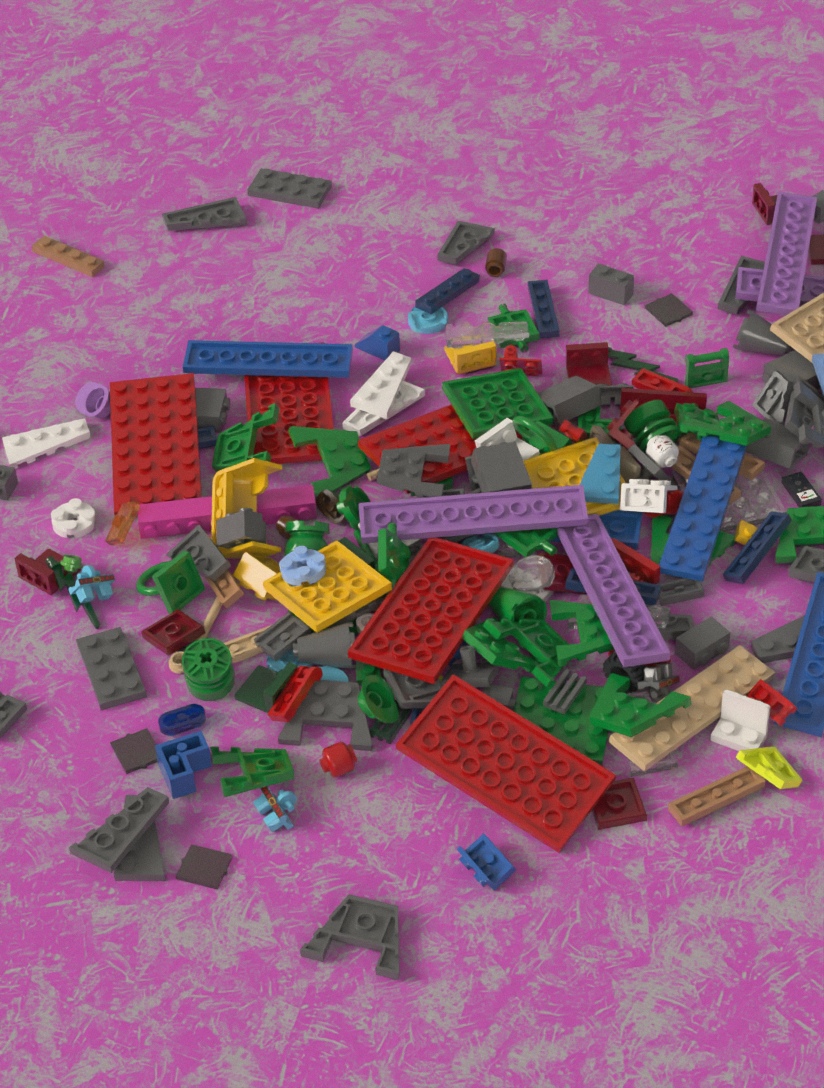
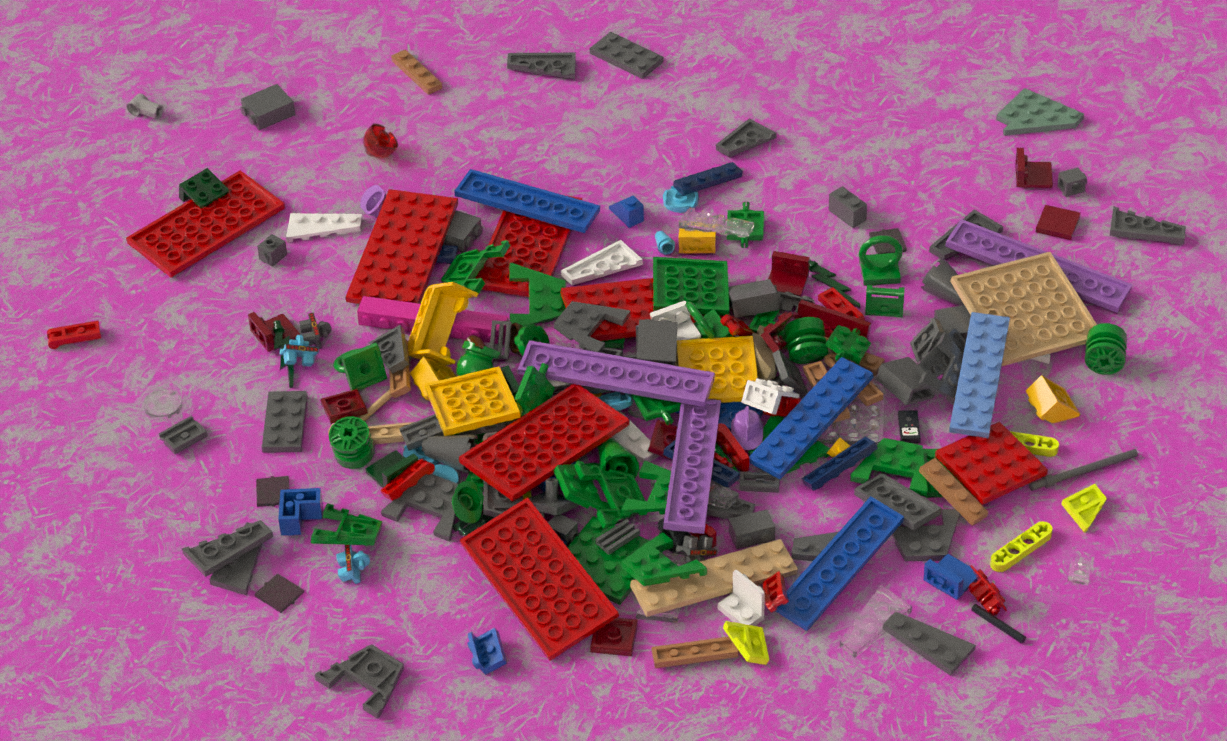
camera: 20 degrees right, 0 degrees up
(68, 338) = (379, 142): none -> clear red cylinder
(71, 563) = (292, 329): bright green plate -> none
(73, 509) = (318, 287): white plate -> none
(98, 556) = (314, 330): none -> dark grey hips
(122, 523) = (346, 308): clear orange plate -> none
(182, 719) = (316, 476): clear blue plate -> none
(240, 528) = (428, 336): dark grey brick -> none
(302, 566) = (450, 380): light blue plate -> none
(315, 506) = (500, 341): none -> dark grey tile
(338, 759) = (416, 540): red head -> none
(382, 387) = (605, 249): white wing -> none
(437, 367) = (664, 243): none -> medium azure cone
(496, 262) = (761, 163): reddish brown brick -> none
(531, 367) = (724, 253): red hinge -> none
(532, 574) = (641, 436): clear tile -> none
(543, 309) = (779, 214): dark blue plate -> none
(603, 475) = (739, 369): dark azure wing -> none
(639, 535) = (747, 429): none -> medium lavender piece
(662, 451) = (799, 362): white head -> none
(679, 336) = (880, 268): none -> green tile
(737, 427) = (868, 360): green wing -> none
(744, 151) = (1037, 113): none -> sand green wing
(786, 254) = (1008, 216): medium lavender plate -> none

